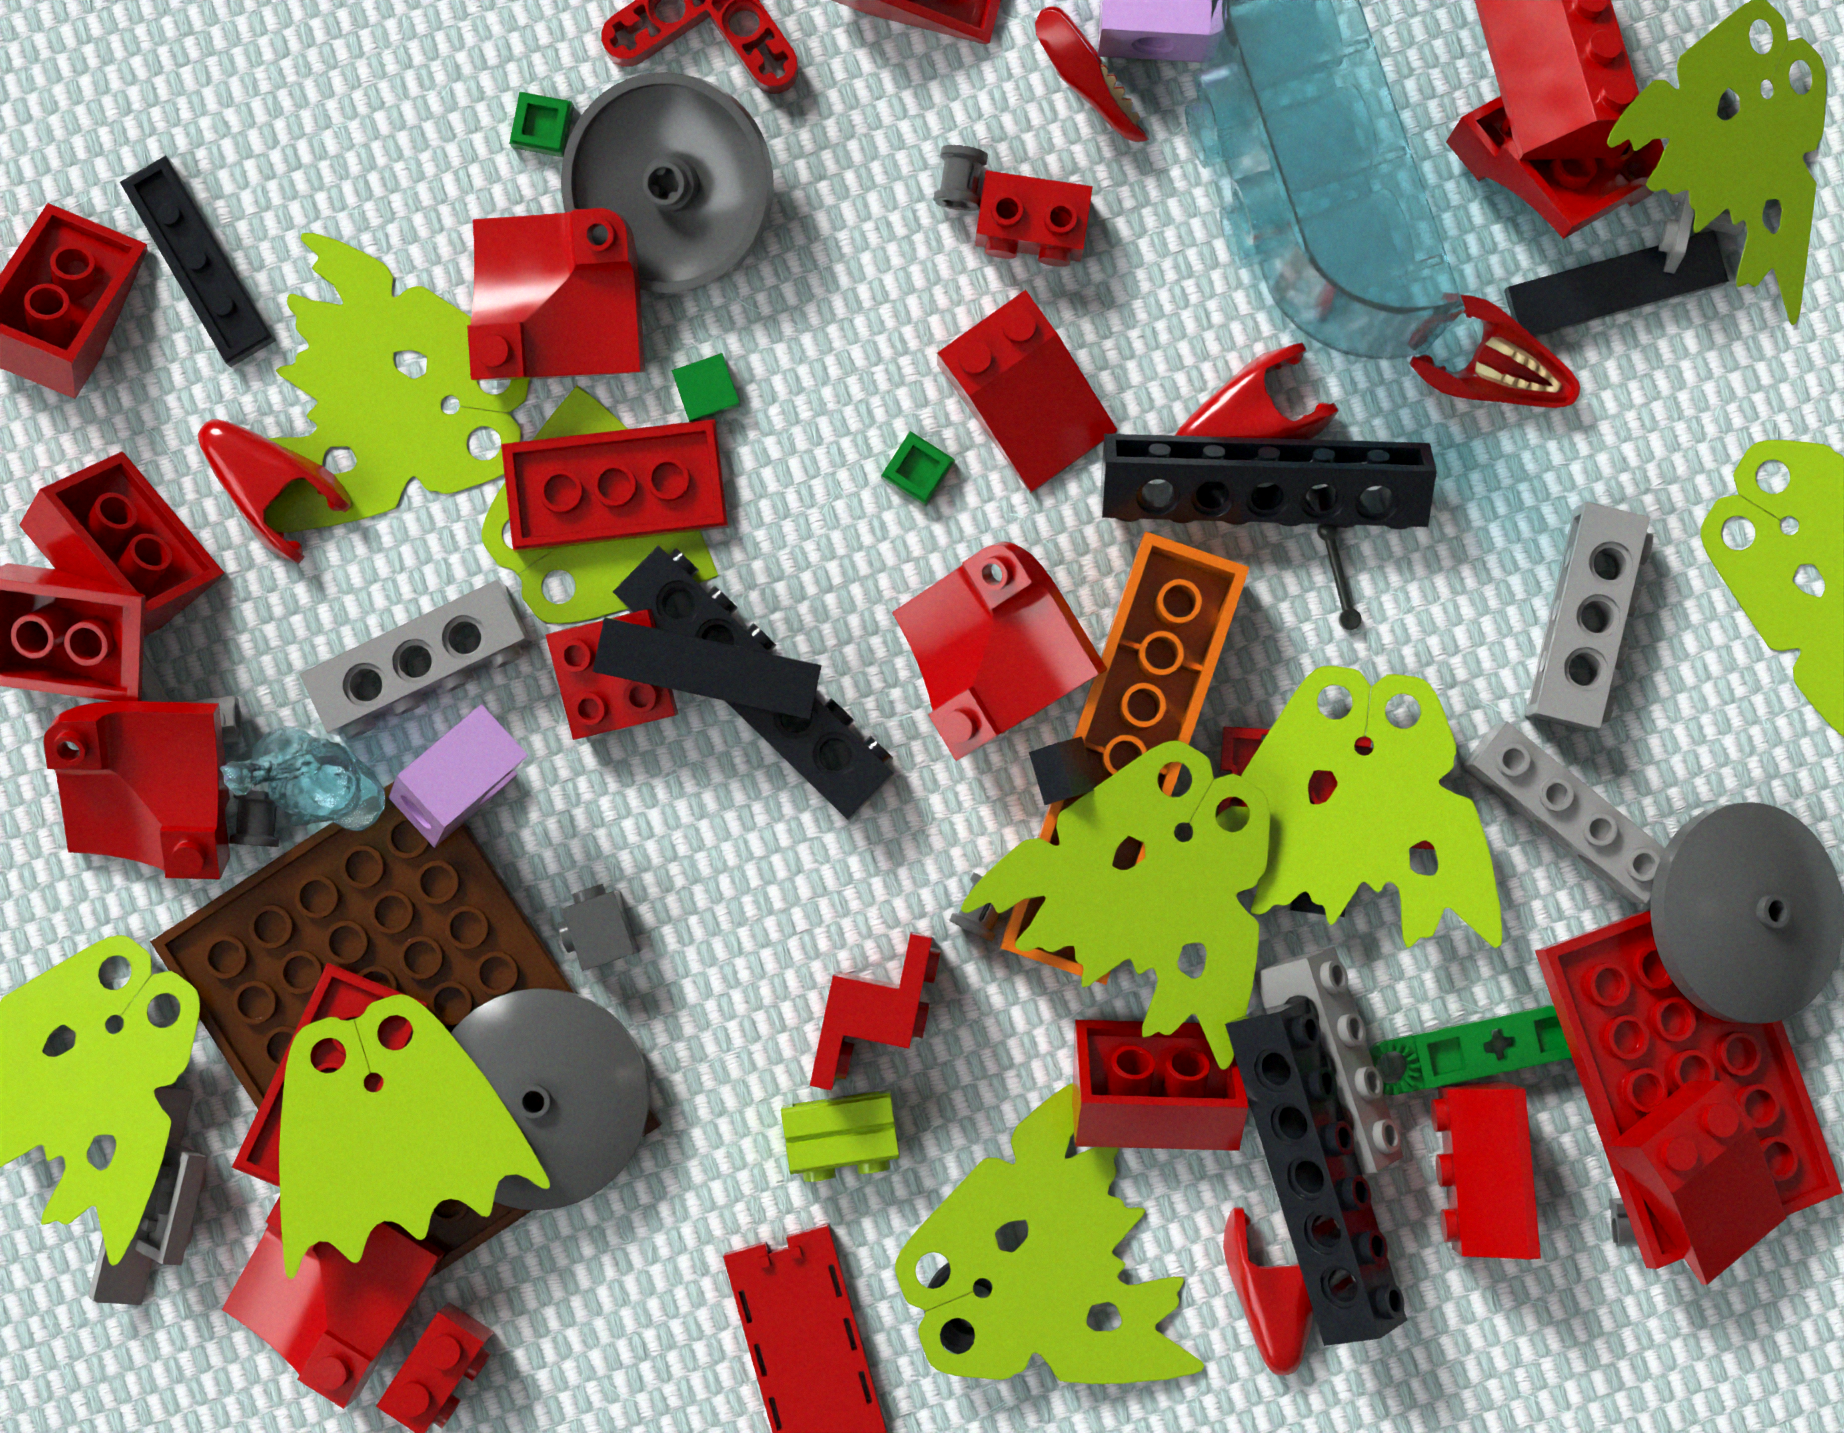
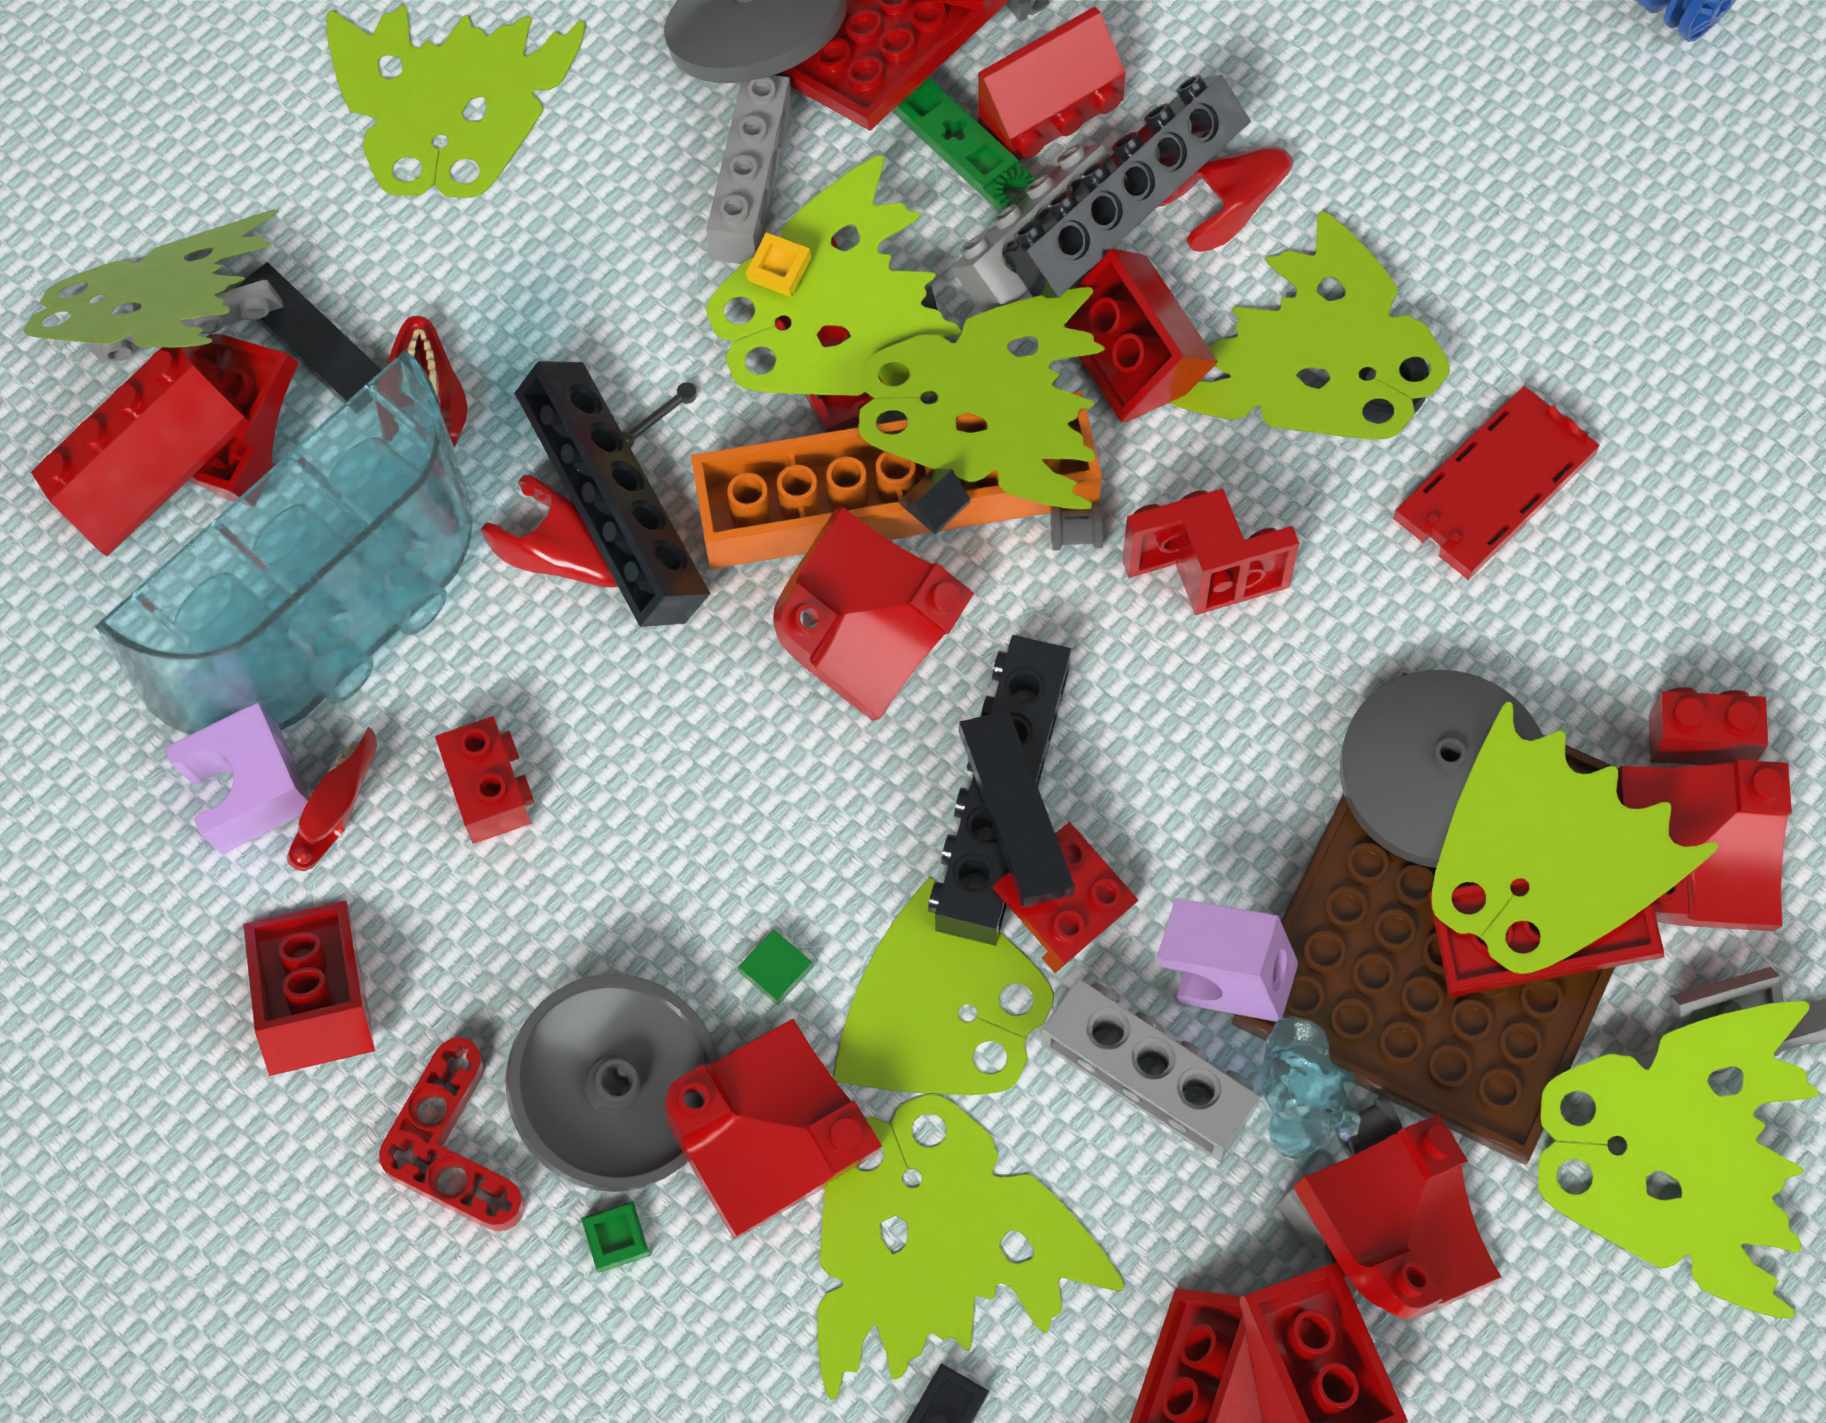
camera: 120 degrees left, 20 degrees down
(257, 472) = (1073, 1298): red animal -> none
(597, 928) = (1280, 799): dark grey brick -> none
(614, 485) = (903, 997): red tile -> none
(840, 1134) = (1329, 541): lime brick -> none
(918, 468) = (748, 765): green tile -> none
(960, 177) = (479, 855): dark grey bush -> none
(1026, 391) = (634, 714): red slope -> none
(1423, 769) = (778, 264): none -> yellow plate
(1553, 692) = (579, 247): light grey brick -> none

